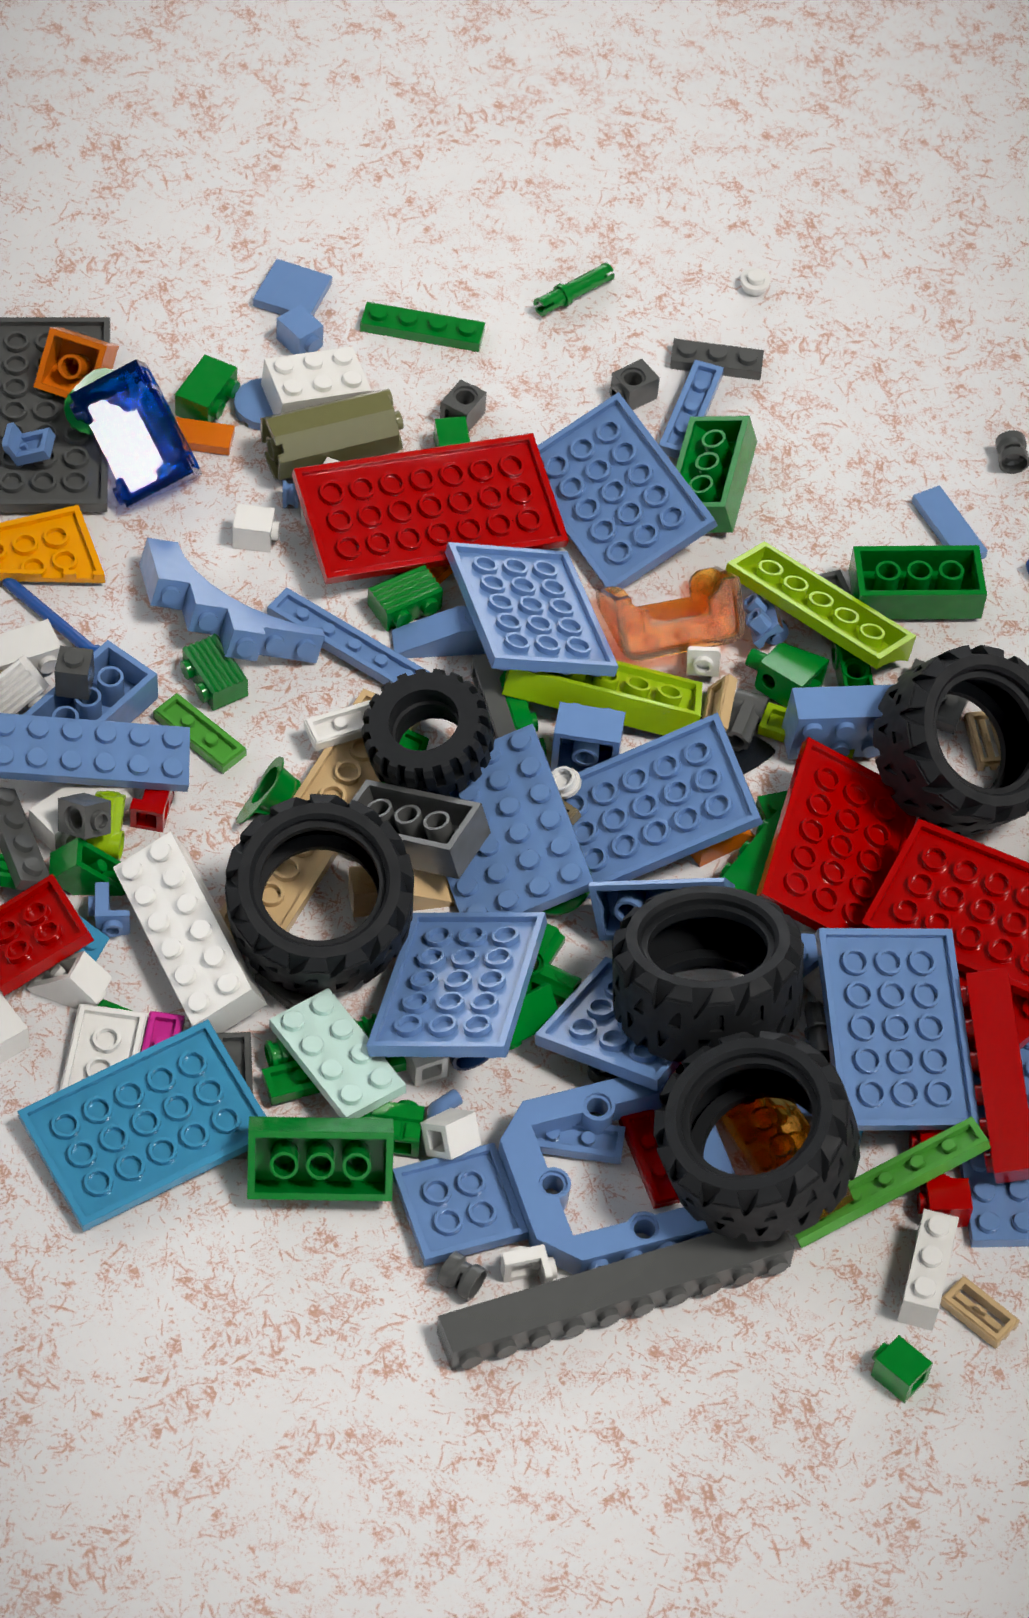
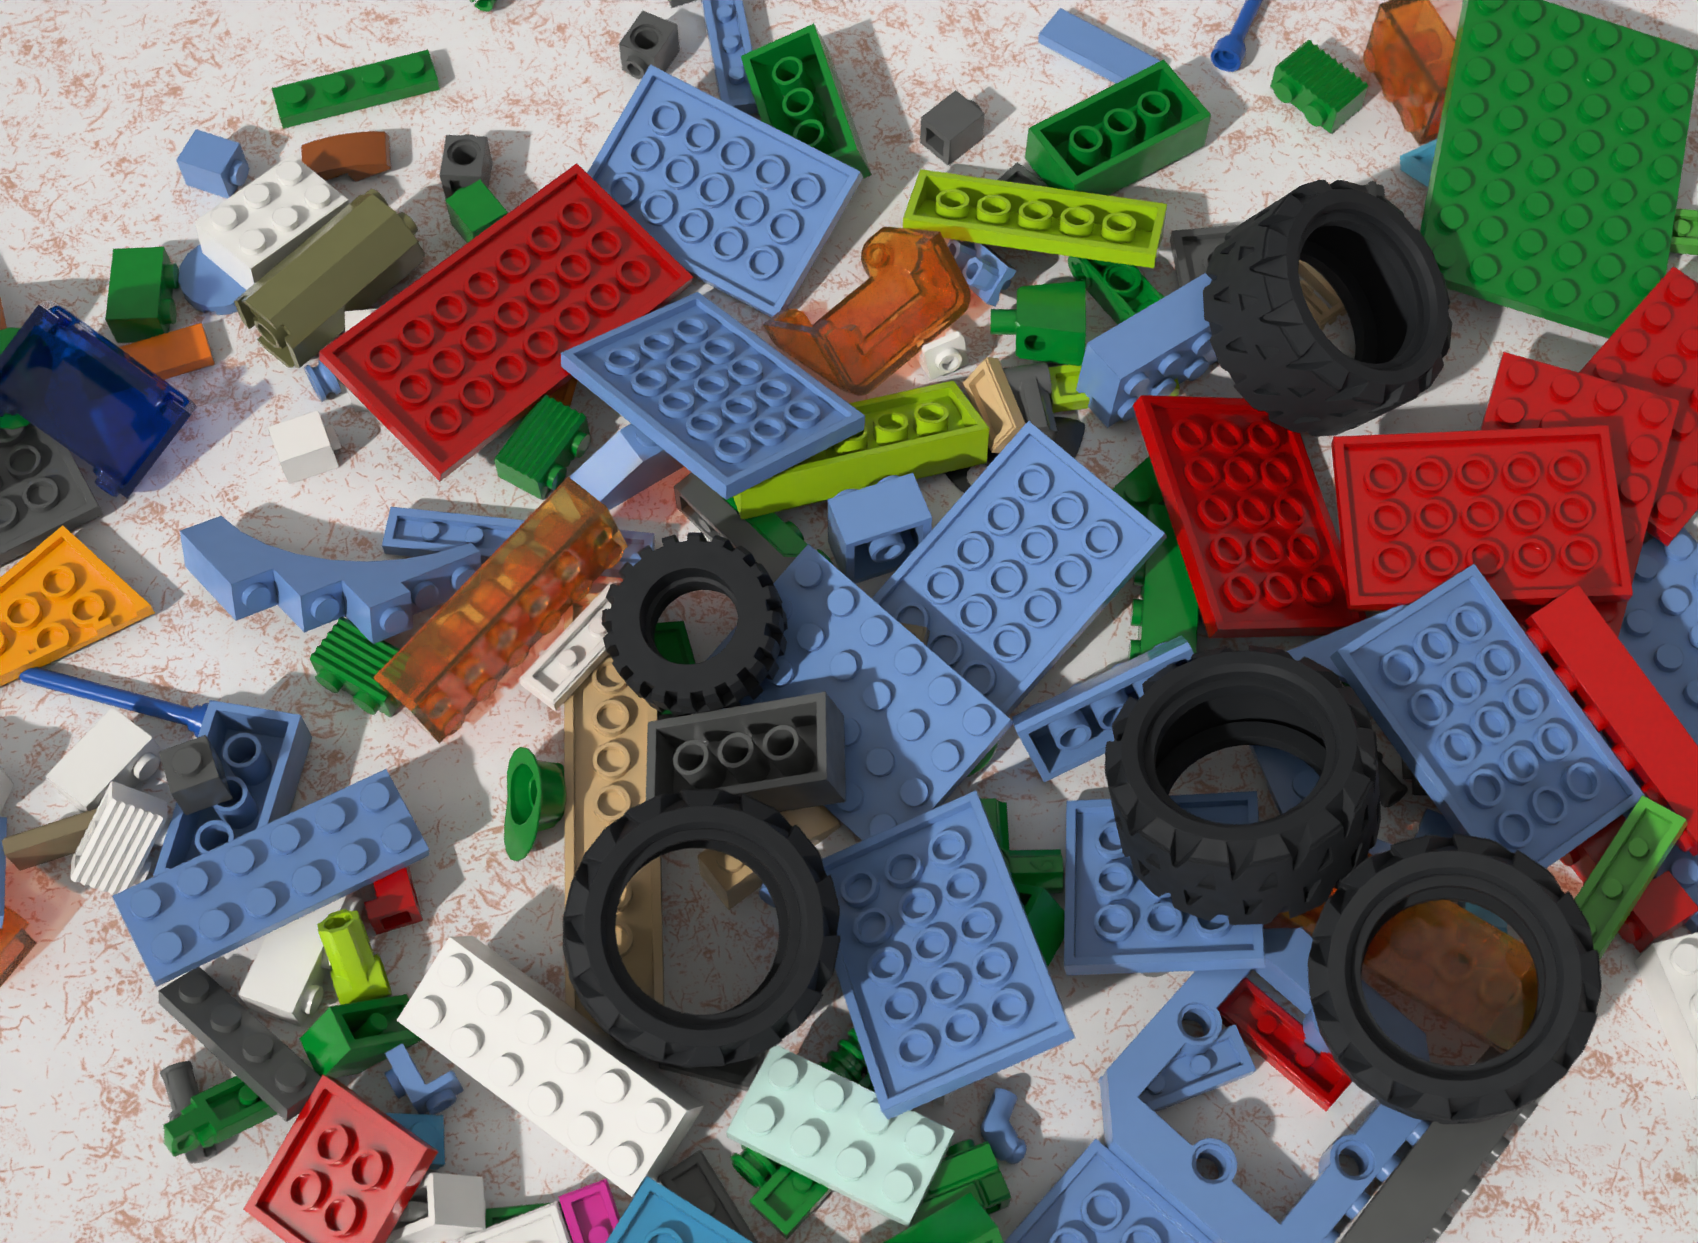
camera: 25 degrees left, 10 degrees up
(84, 816) = (321, 973): dark grey brick -> none
(205, 736) = (407, 759): bright green tile -> none
(290, 286) = (169, 112): medium blue tile -> none
(315, 673) = (503, 610): none -> clear orange brick
(393, 365) = (350, 153): none -> dark orange slope
(450, 1133) = (1041, 1161): white brick -> none
(567, 780) = (890, 595): white plate -> none
(809, 527) = (952, 127): none -> dark grey brick

